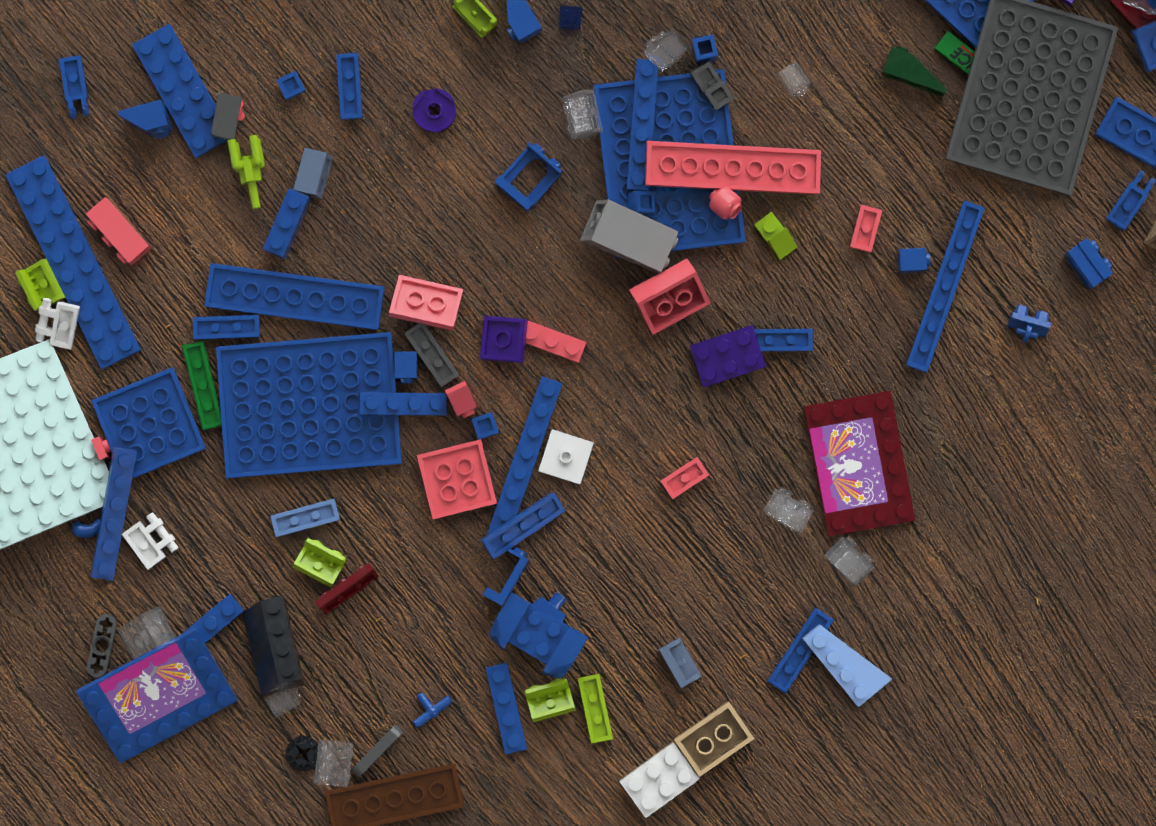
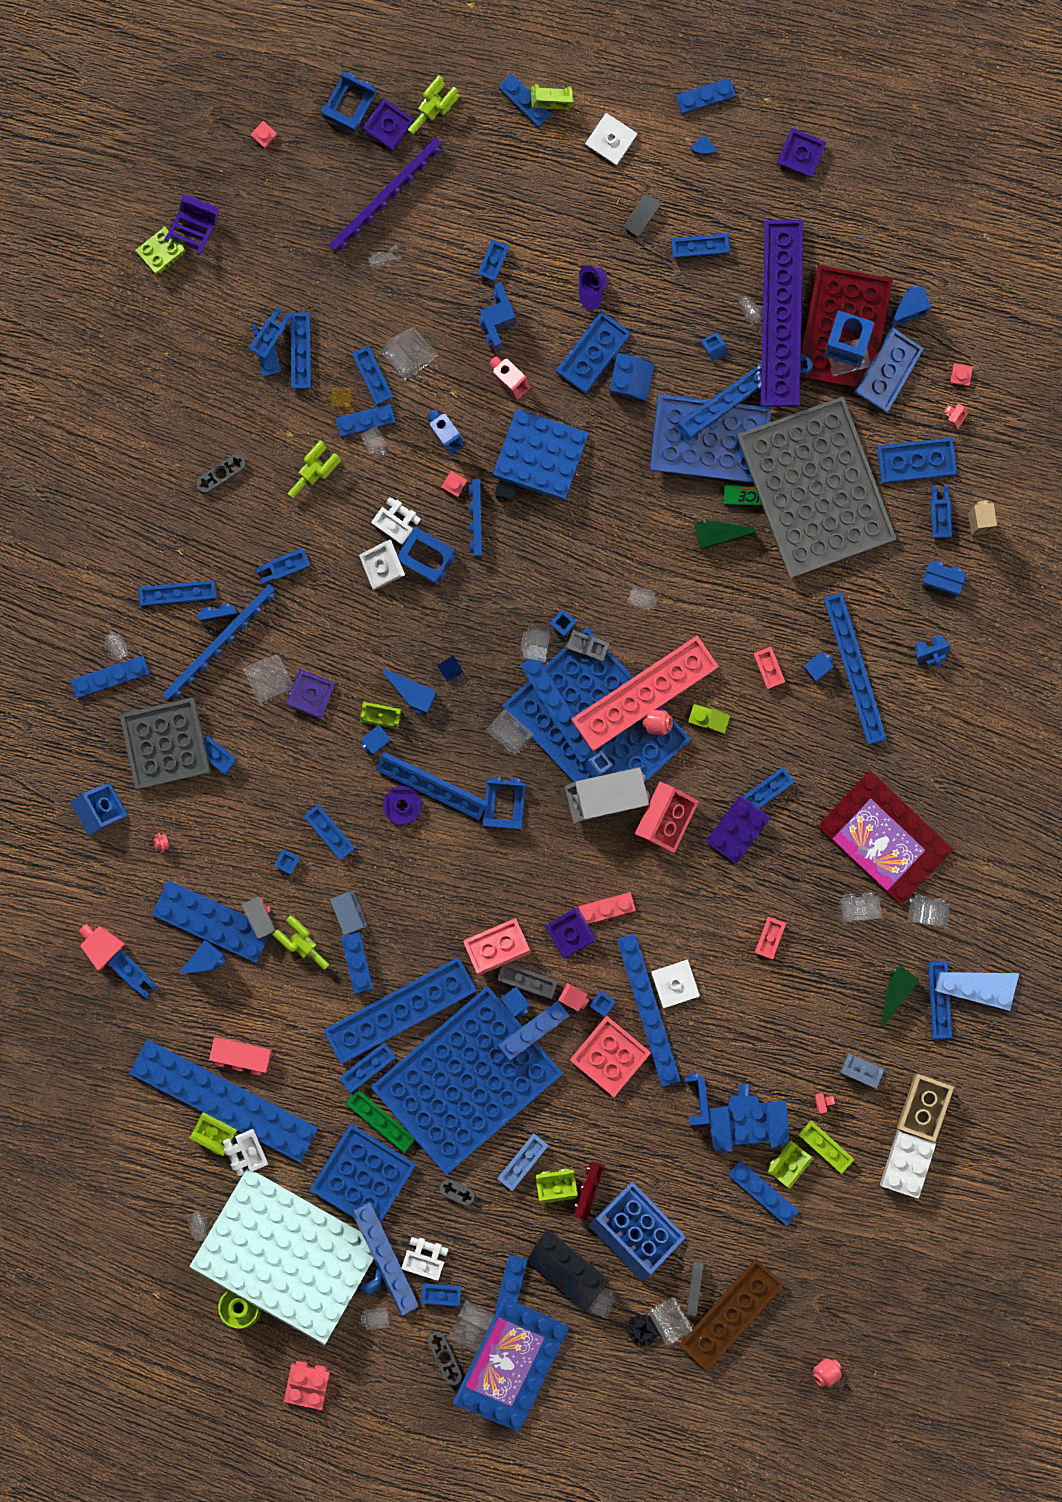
camera: 35 degrees left, 0 degrees up
(64, 38) = (100, 945): none -> coral torso
(65, 562) = (375, 1318): none -> clear brick
(101, 447) = (342, 1218): coral plate -> none
(141, 584) = (441, 1294): none -> blue plate
(220, 504) = (459, 1187): none -> dark grey beam
(363, 658) = (637, 1231): none -> blue slope
(431, 711) = (711, 1233): blue piece -> none
(453, 33) = (375, 740): none -> blue brick
(474, 111) = (431, 785): none -> blue plate
(522, 525) = (681, 1055): blue plate -> none
(621, 664) = (822, 1102): none -> coral tile
(768, 611) = (897, 989): none -> dark green slope

